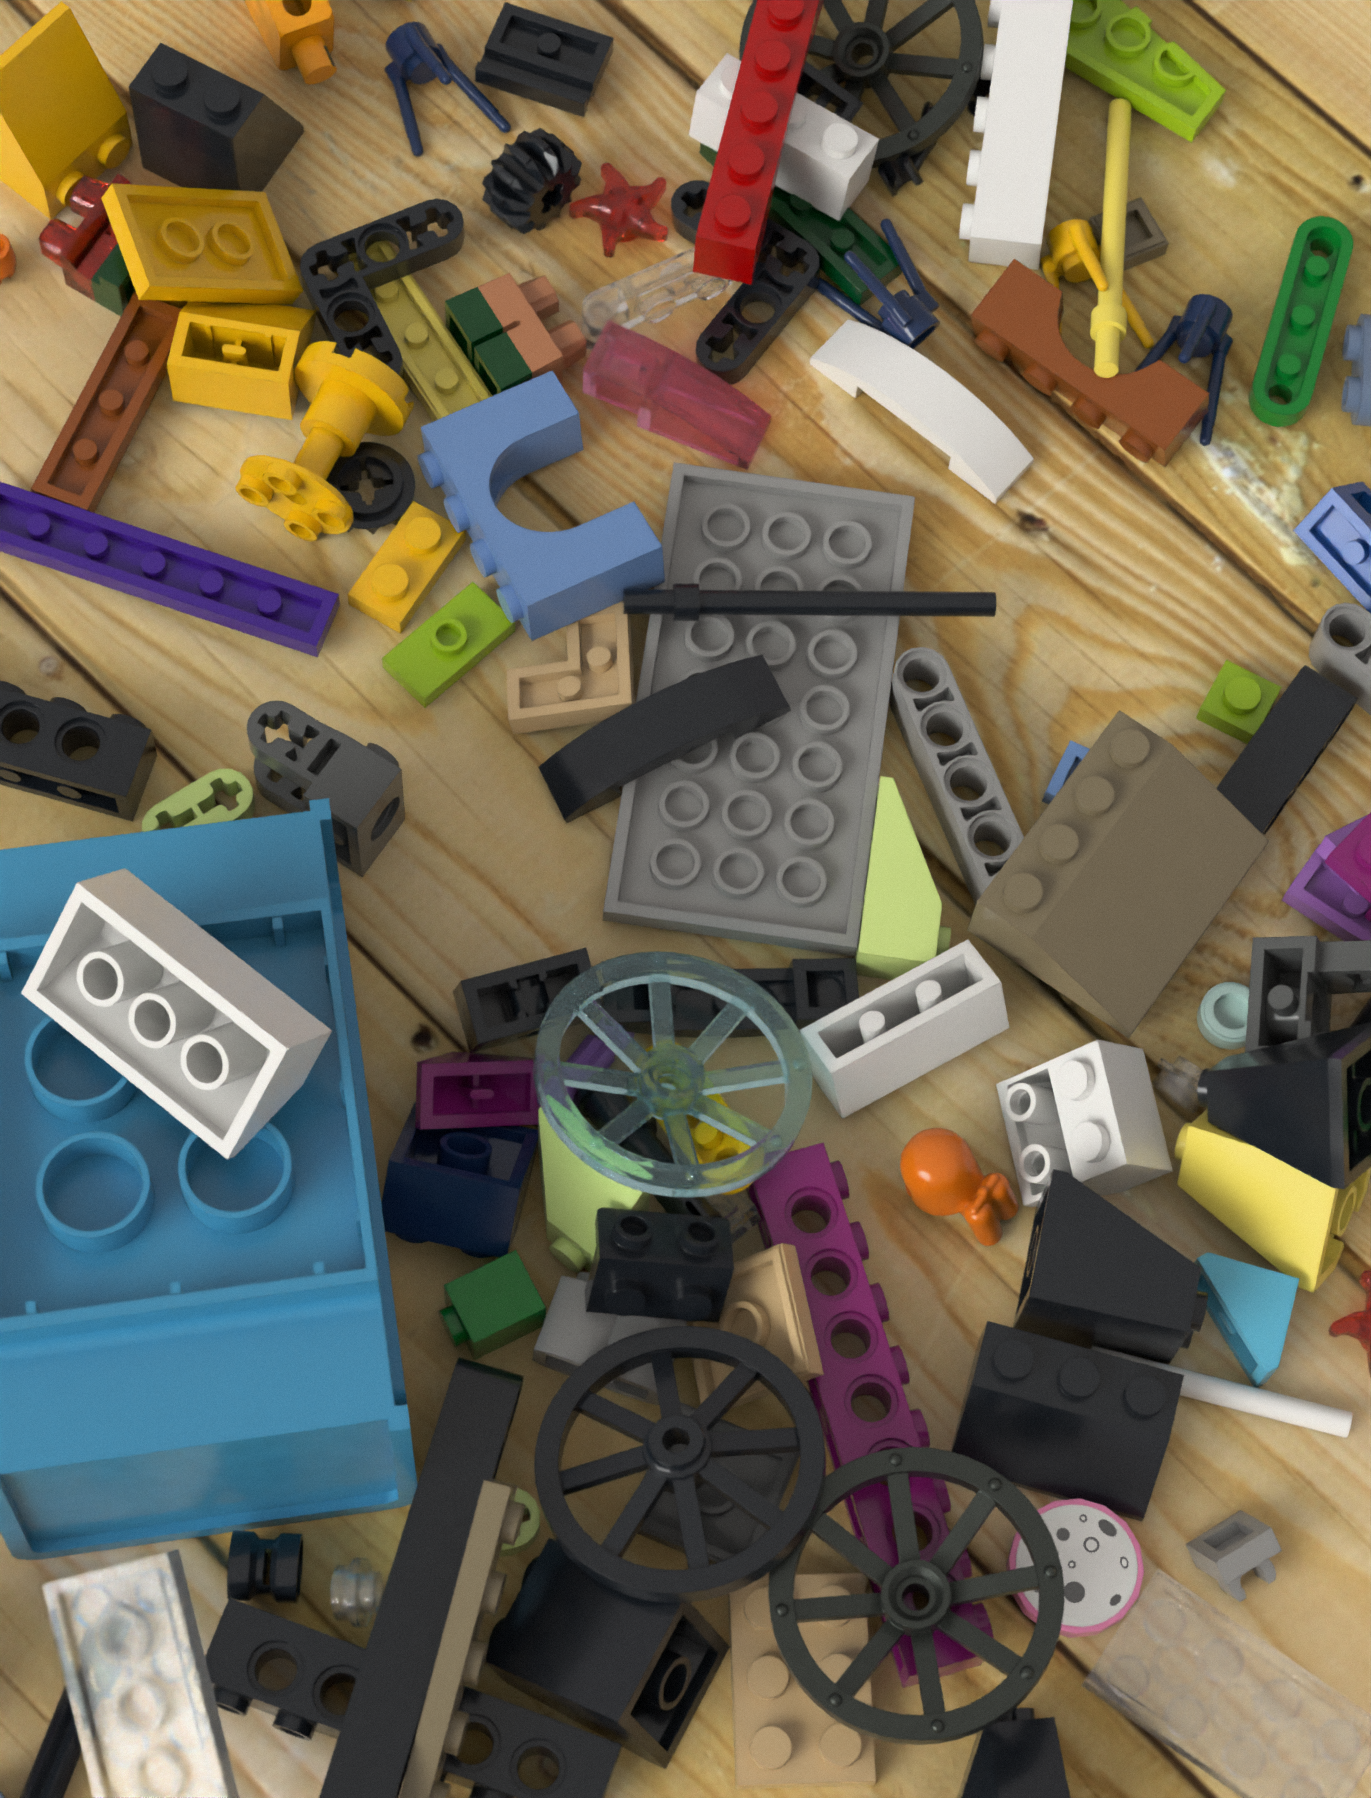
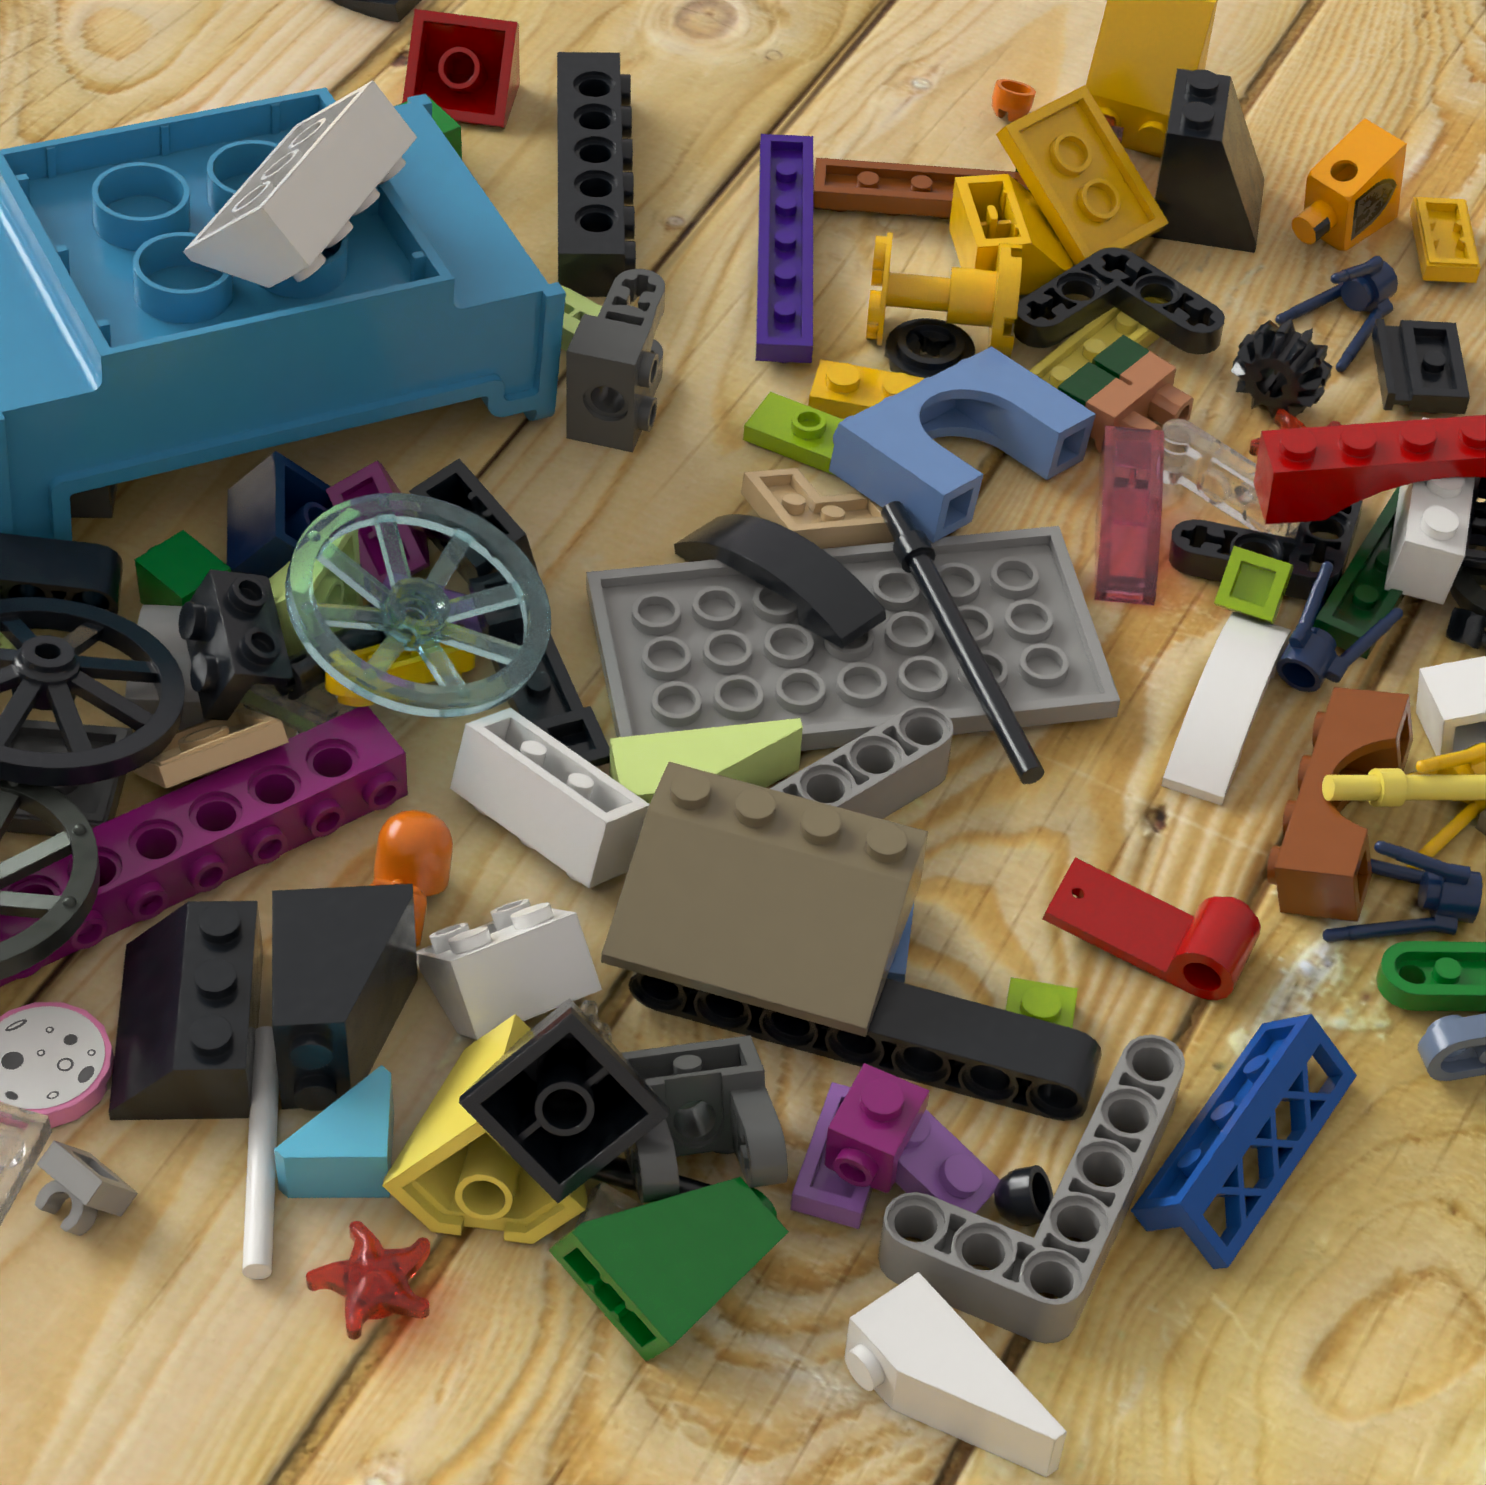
camera: 75 degrees right, 20 degrees down
(808, 326) = (1253, 584): none -> lime plate
(1179, 573) = (1191, 952): none -> red door

